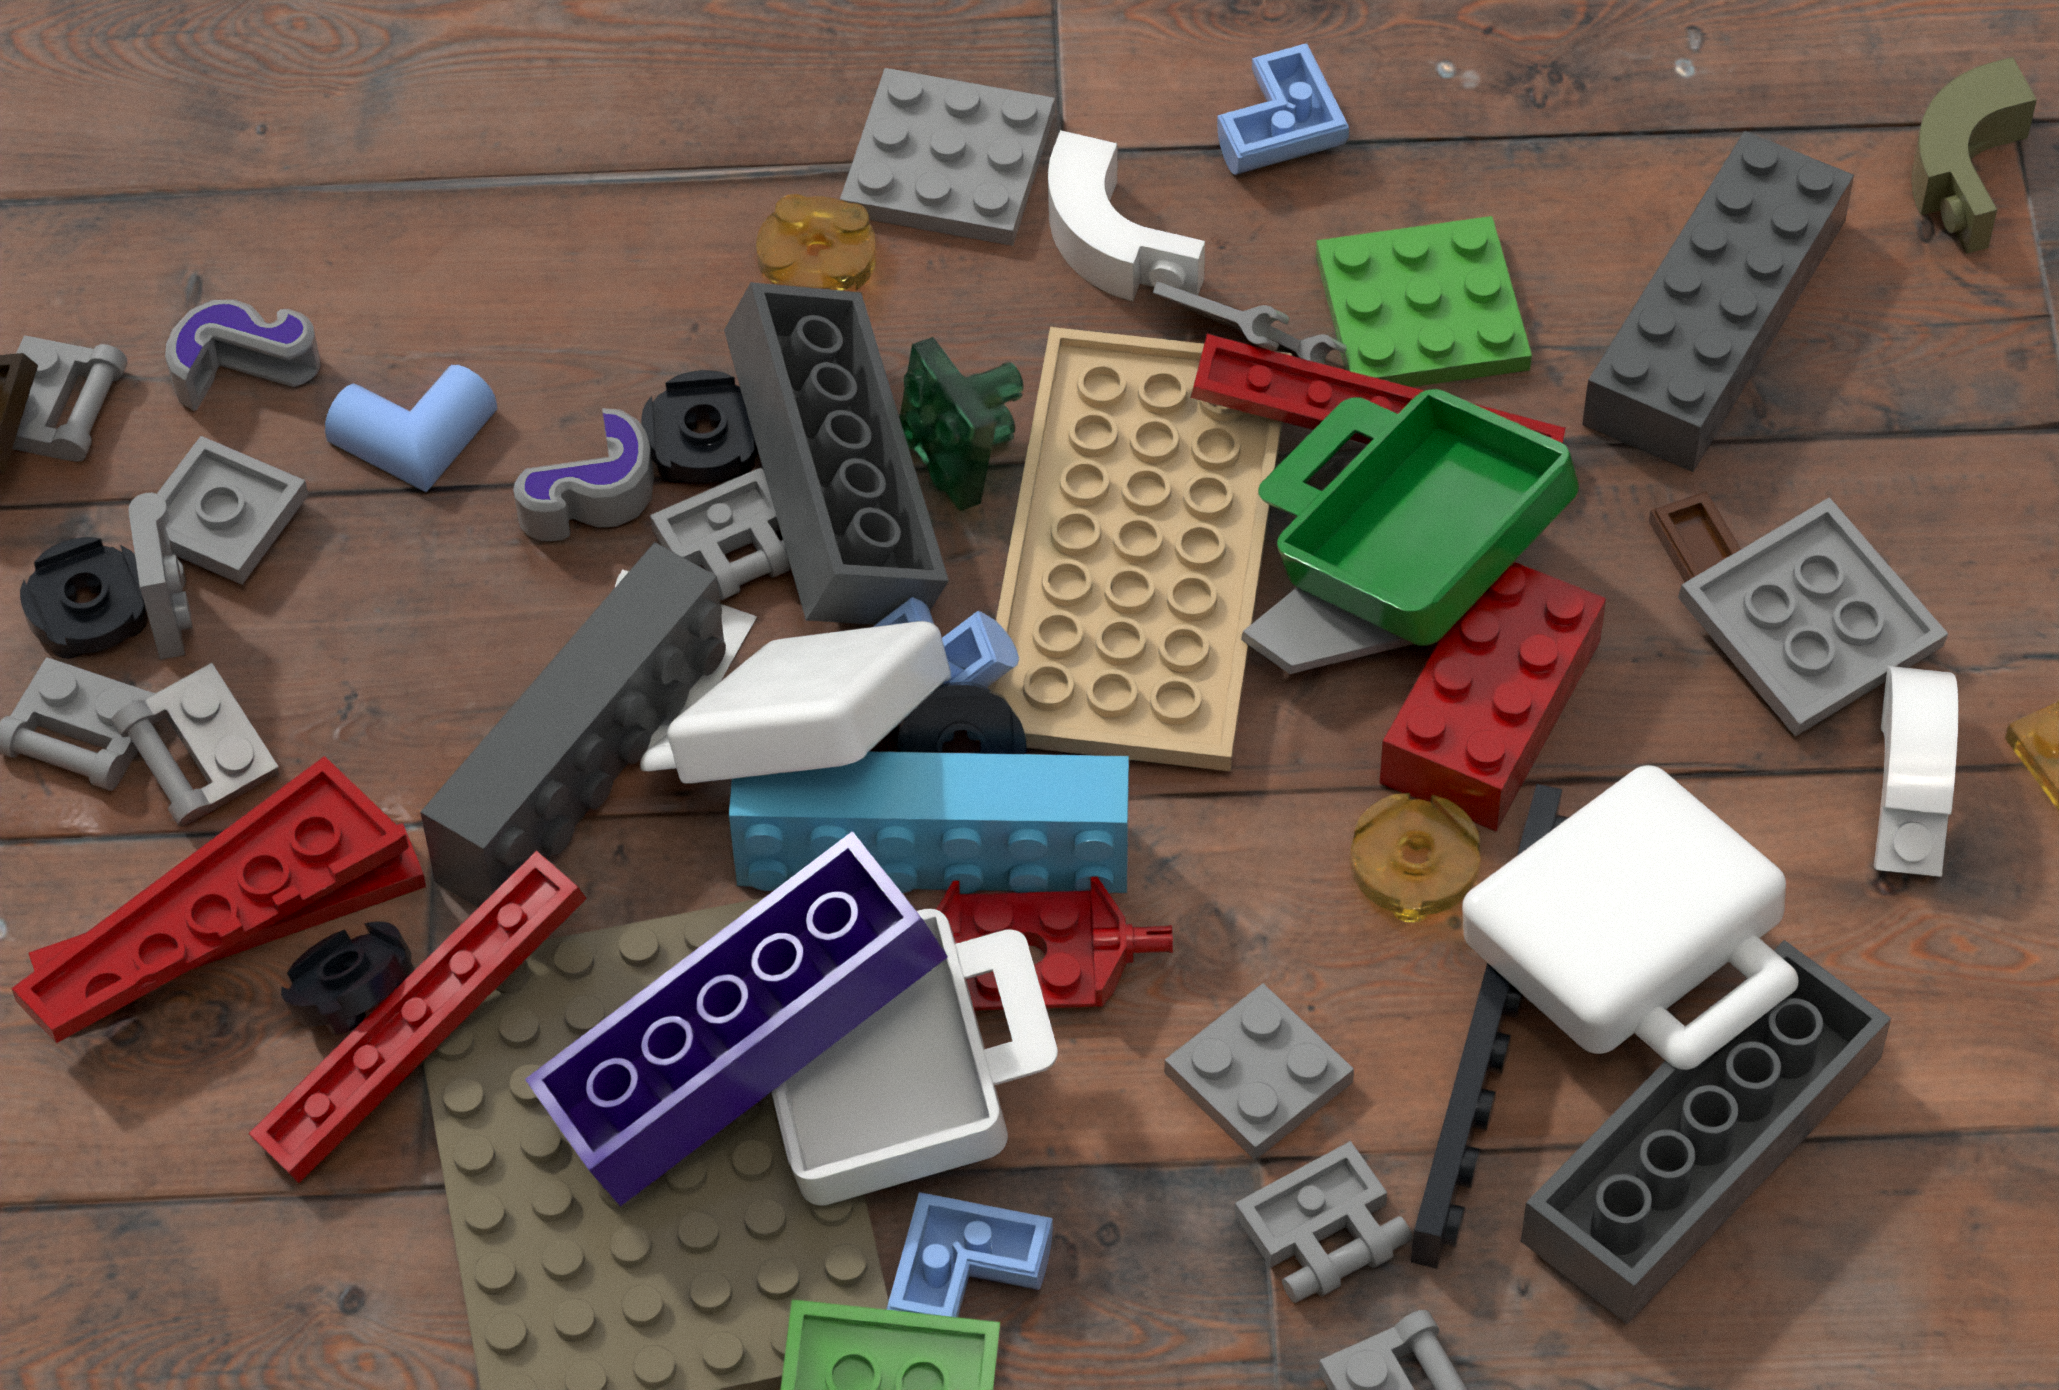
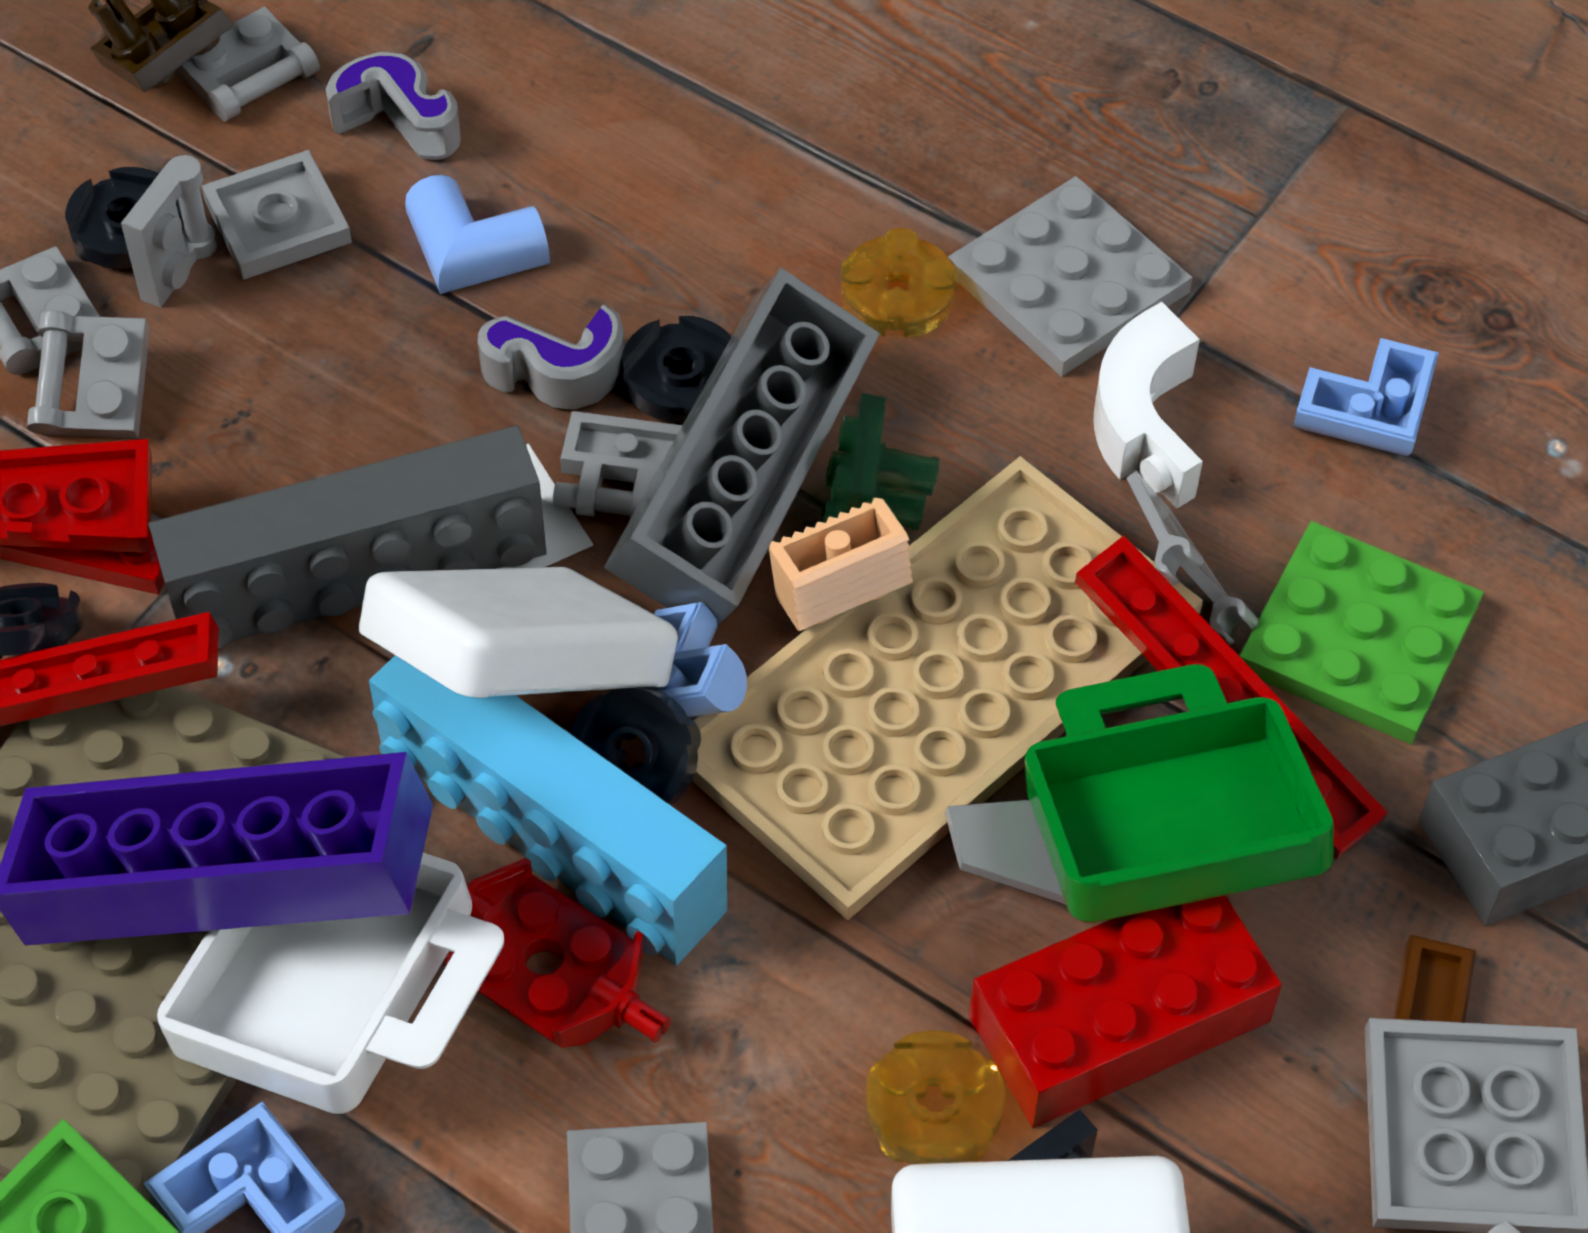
camera: 35 degrees right, 0 degrees up
(1005, 495) = (840, 564): none -> light nougat brick

